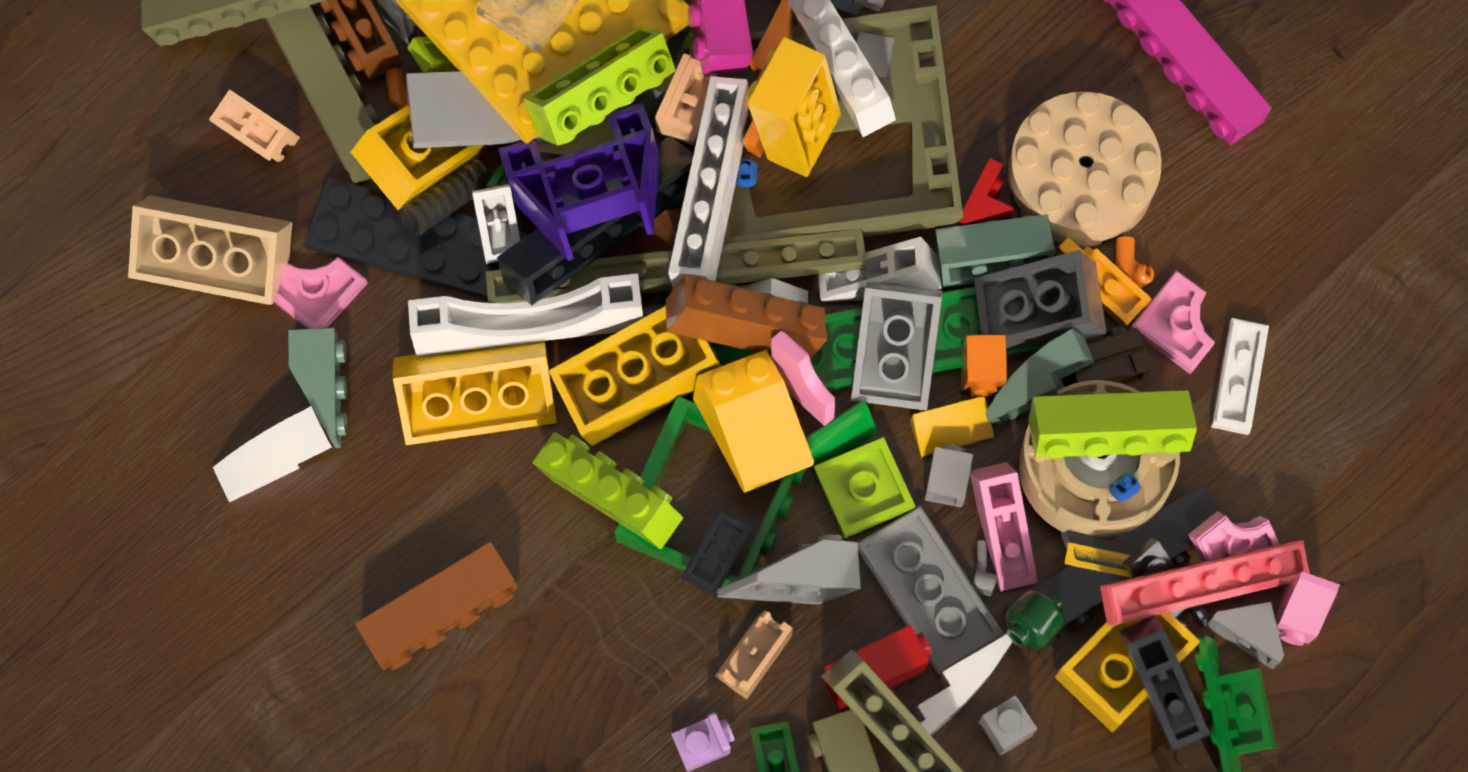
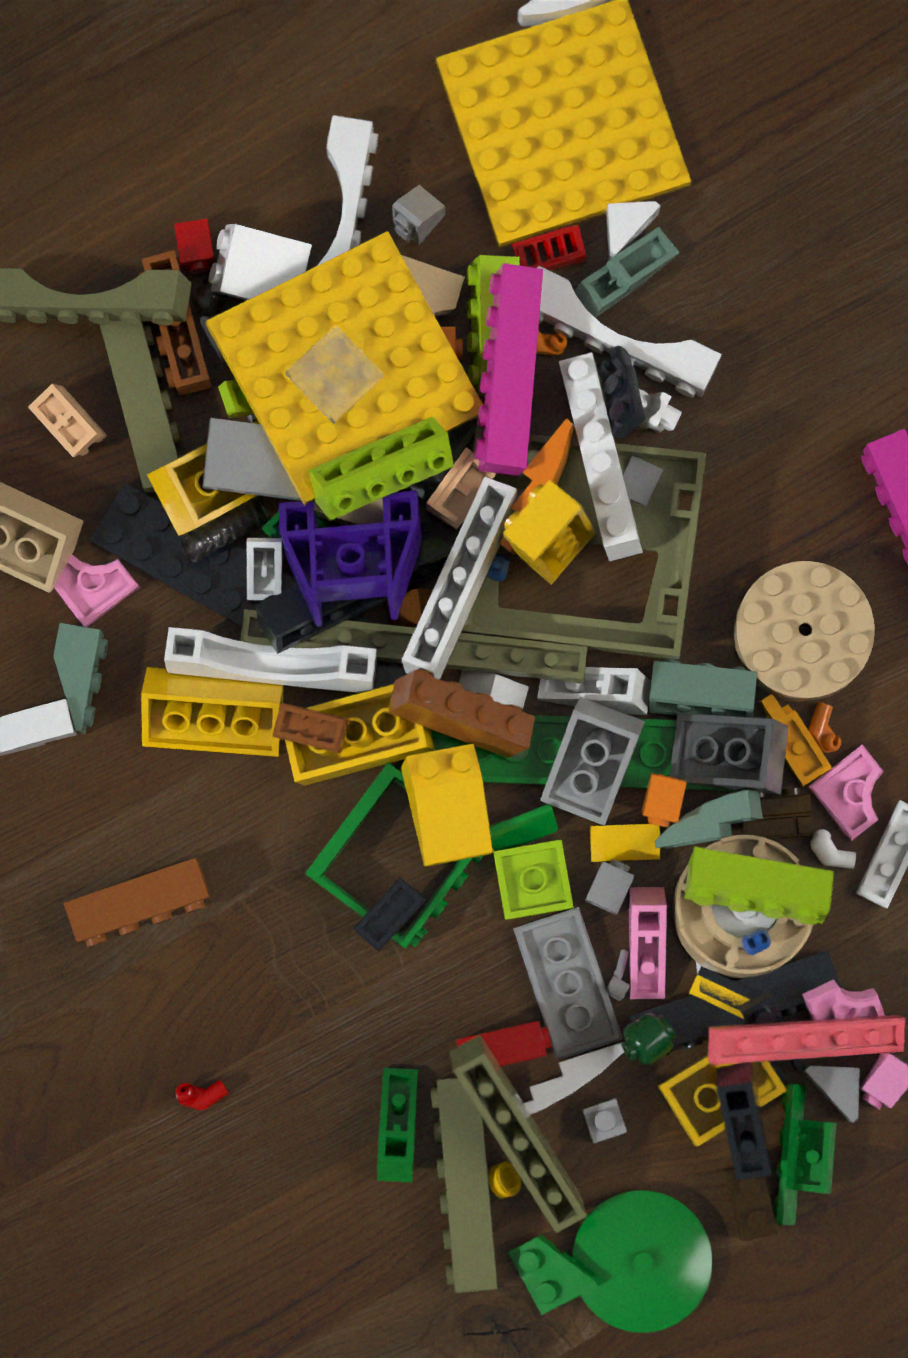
camera: 15 degrees right, 10 degrees up
(396, 88) = (203, 411): orange arm -> none
(586, 371) = (310, 728): none -> dark orange plate
(609, 490) = (306, 836): lime brick -> none
(703, 742) = (340, 1071): lavender bracket -> none
(754, 654) = (401, 1005): light nougat hinge -> none
(801, 378) = (496, 773): bright pink tile -> none
(806, 576) = (464, 948): light grey slope -> none
(982, 202) = (699, 648): red slope -> none
(1163, 380) = (828, 853): none -> white arm

